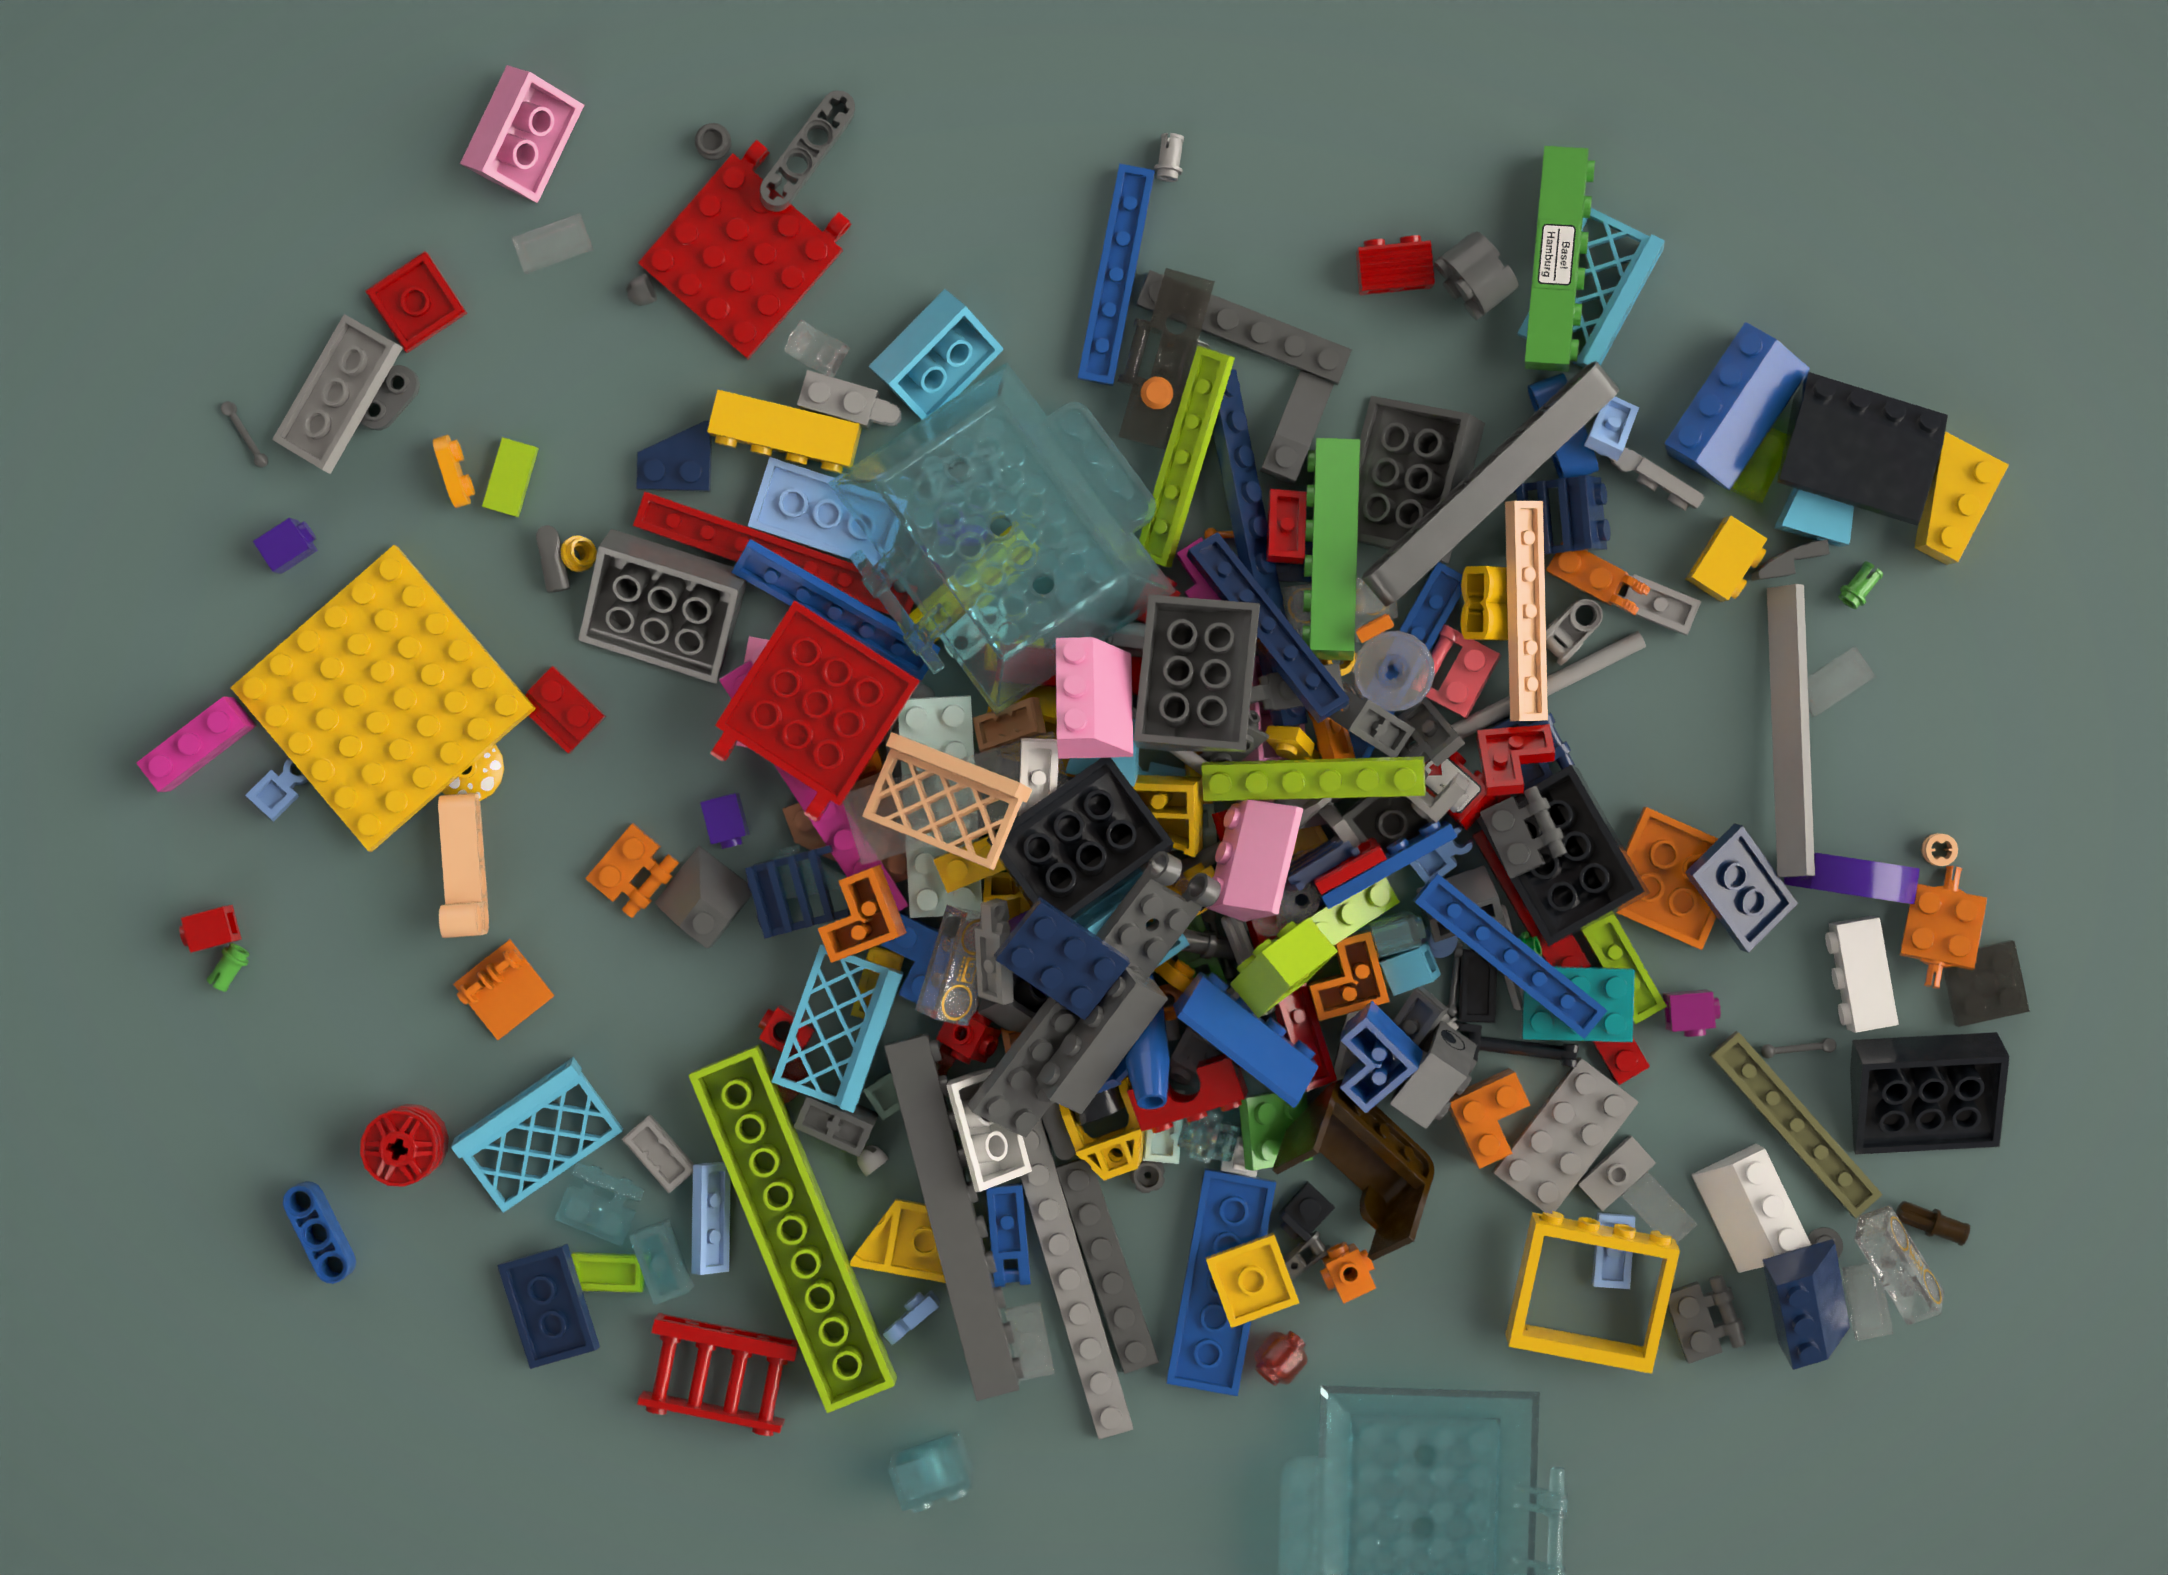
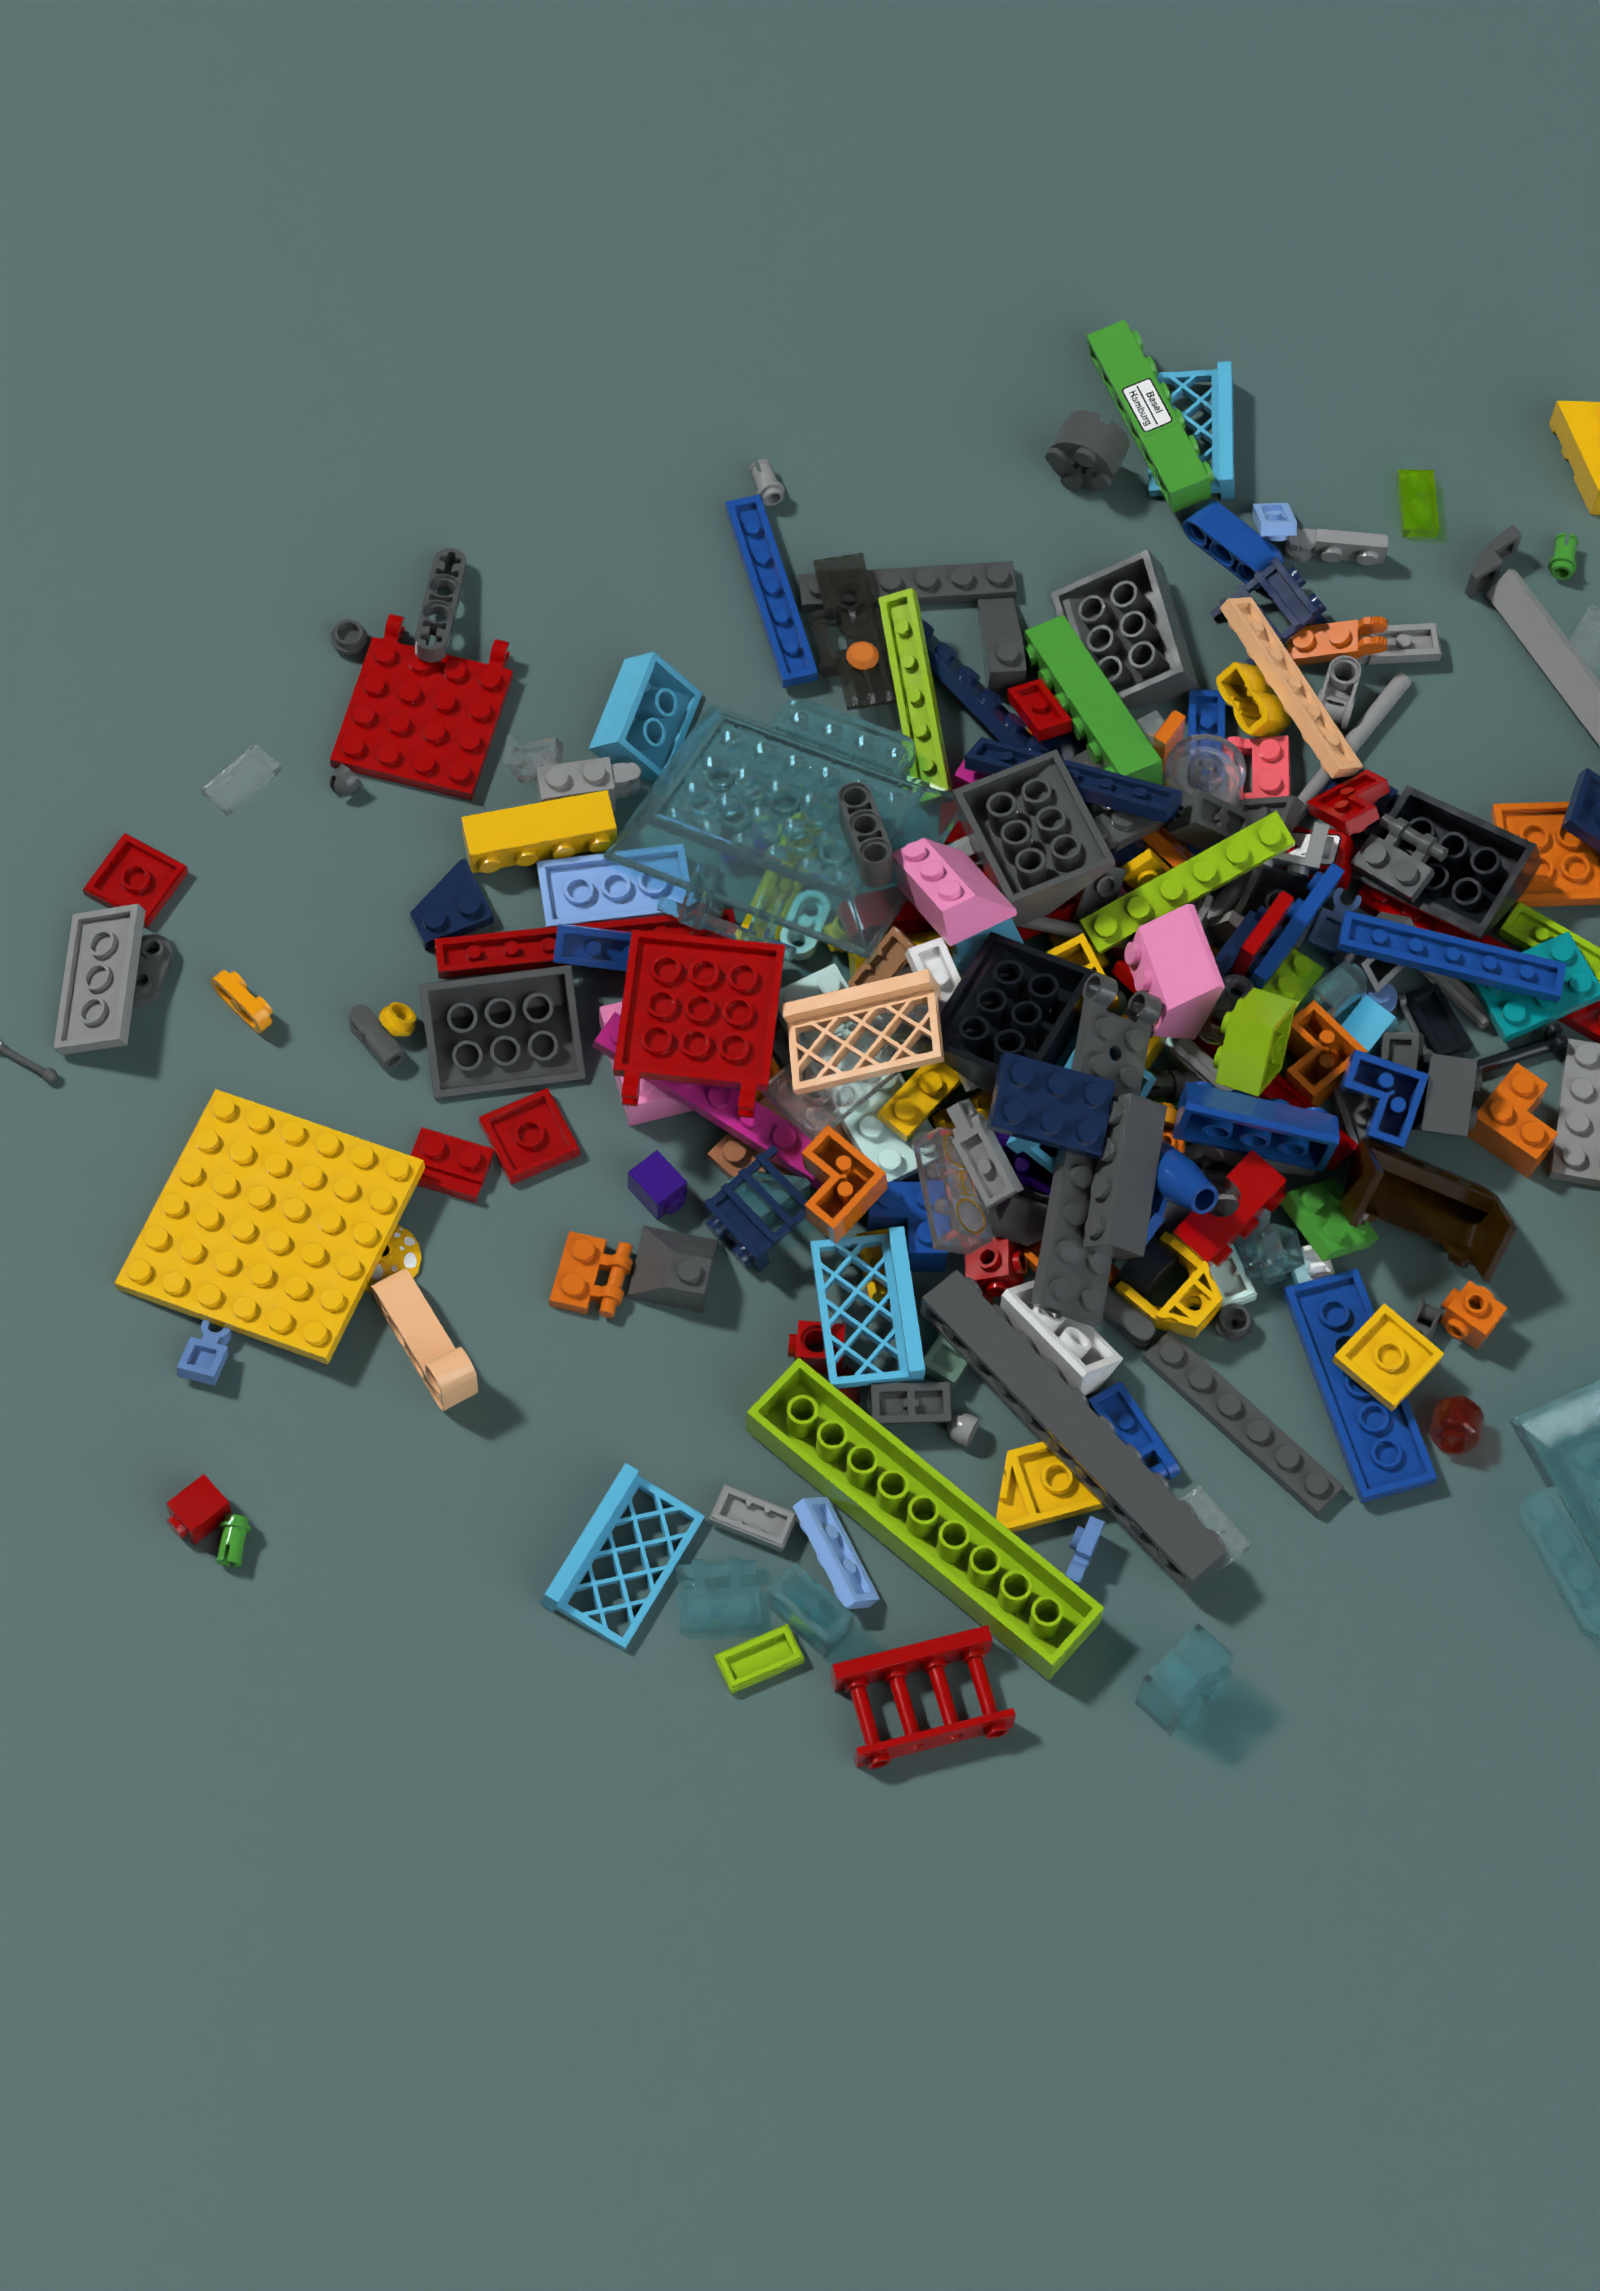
camera: 30 degrees left, 25 degrees down
(196, 744) = (105, 1344): dark pink brick -> none
(286, 545) = (110, 1132): dark purple brick -> none
(317, 1250) = (439, 1732): blue beam -> none
(421, 1133) = (501, 1638): red wheel -> none
(503, 990) = (520, 1438): orange hinge -> none
(510, 477) = (298, 987): lime tile -> none
(522, 133) = (169, 699): bright pink slope -> none
(548, 1306) = (718, 1711): dark blue plate -> none
(642, 715) = (529, 1136): none -> red tile
(1043, 591) = (865, 834): none -> dark grey beam
(1073, 1288) = (1227, 1463): light grey plate -> none
(1305, 1212) = (1400, 1287): black bracket -> none
(1395, 266) = (1012, 482): red brick -> none
(1490, 483) = (1198, 593): beam -> none
(1727, 559) = (1437, 583): yellow brick -> none
(1736, 406) = (1370, 462): blue slope -> none
(1816, 518) = (1489, 507): medium azure torso -> none
(1861, 448) = (1495, 441): black slope -> none

